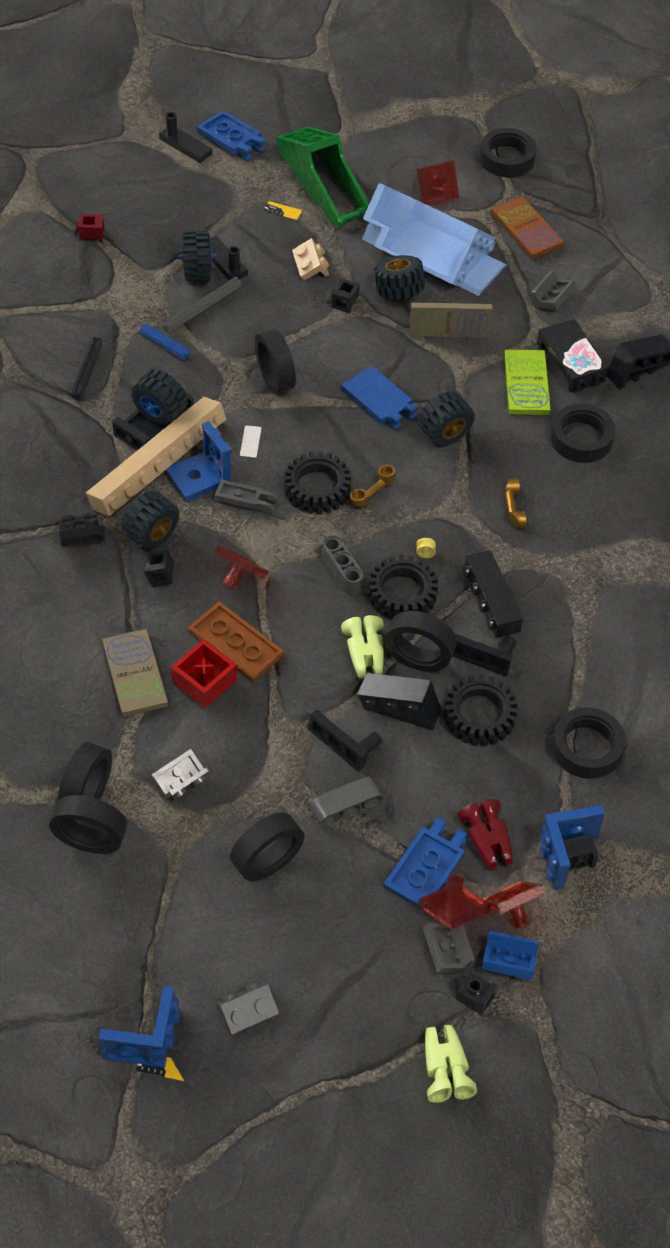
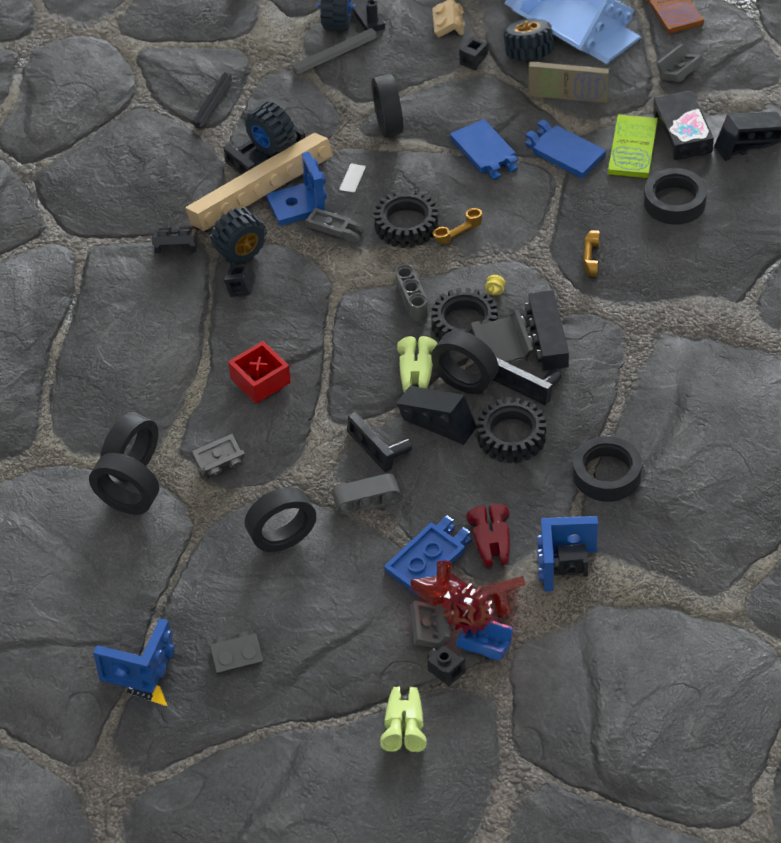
camera: 15 degrees right, 5 degrees down
(134, 672) = (198, 367): dark tan tile -> none
(165, 342) = (291, 82): blue axle -> none
(237, 641) = (299, 349): dark orange tile -> none
(239, 565) = (313, 283): clear red tile -> none
(446, 418) = (540, 170): black wheel -> none
(452, 605) = (505, 337): none -> dark grey panel
(477, 393) = (565, 149): none -> blue tile
(491, 928) = (467, 608): none -> dark red gear

